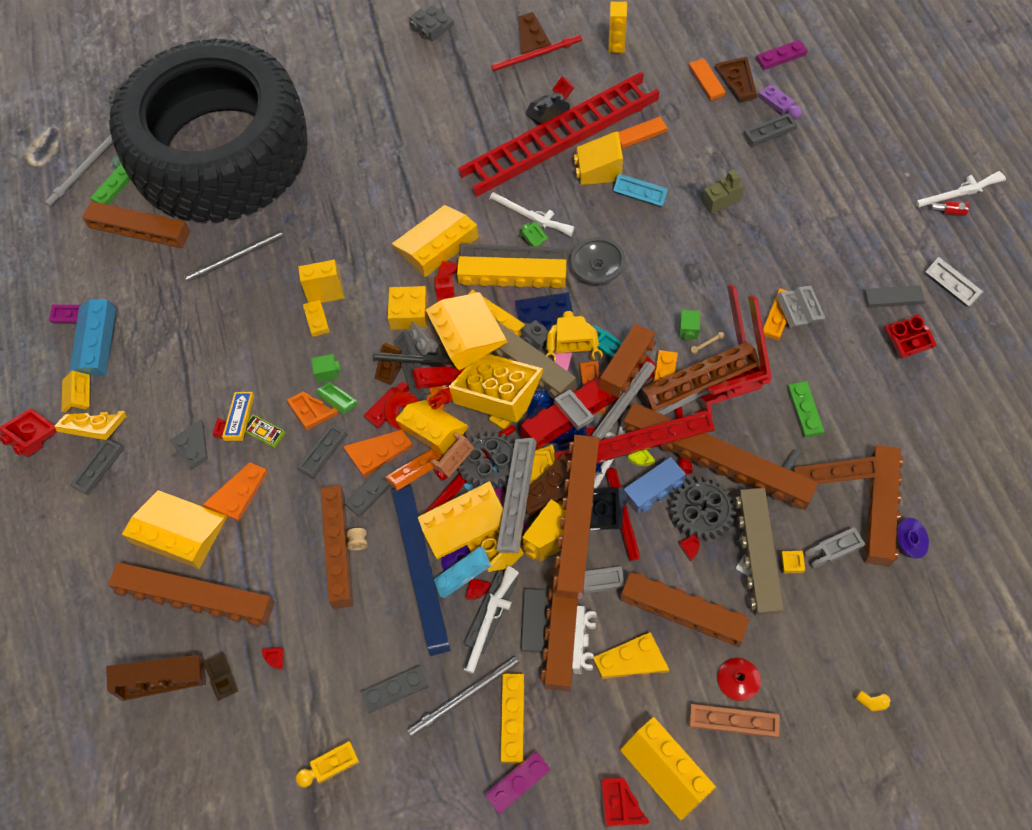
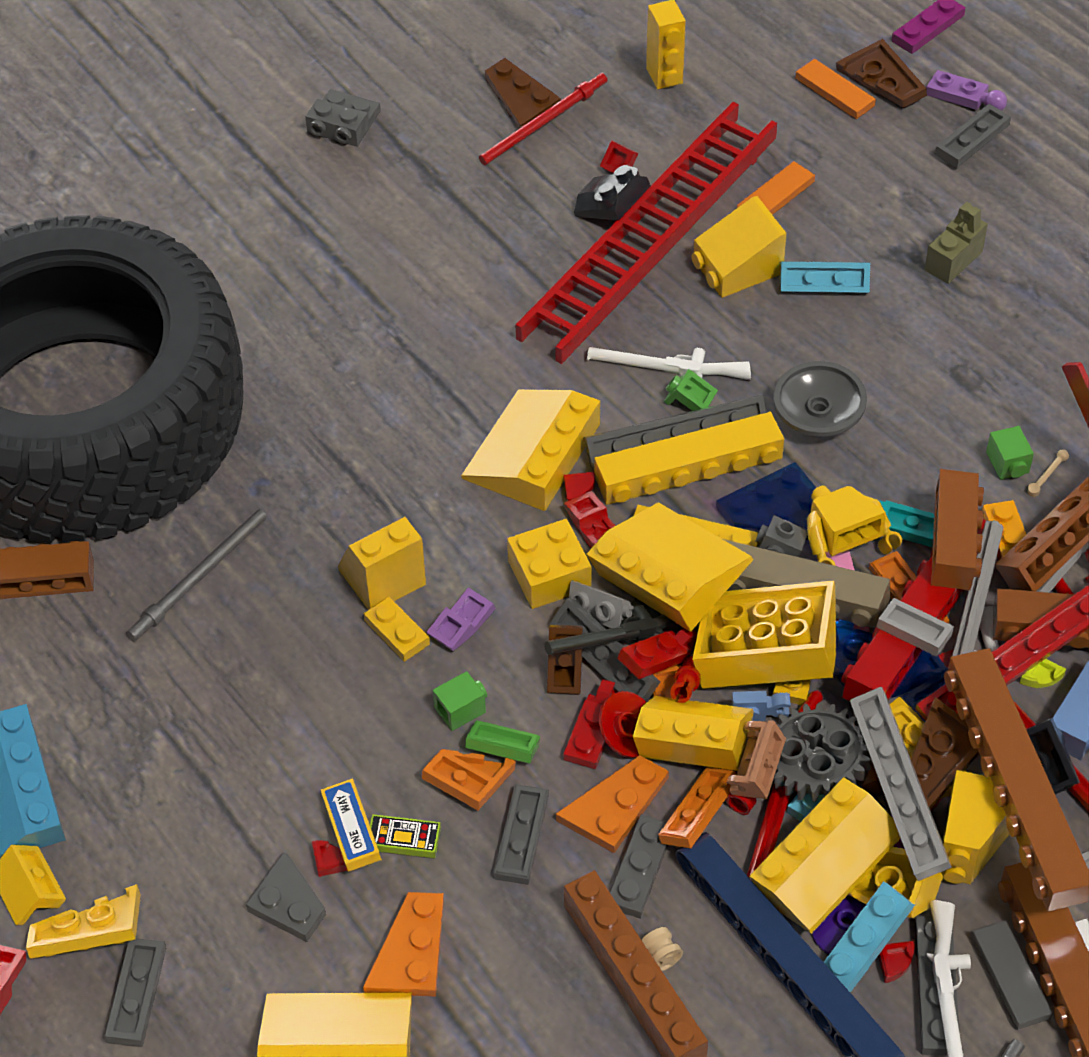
camera: 25 degrees left, 10 degrees down
(352, 324) = (462, 621): none -> medium lavender slope
(476, 424) = (762, 704): none -> medium blue plate

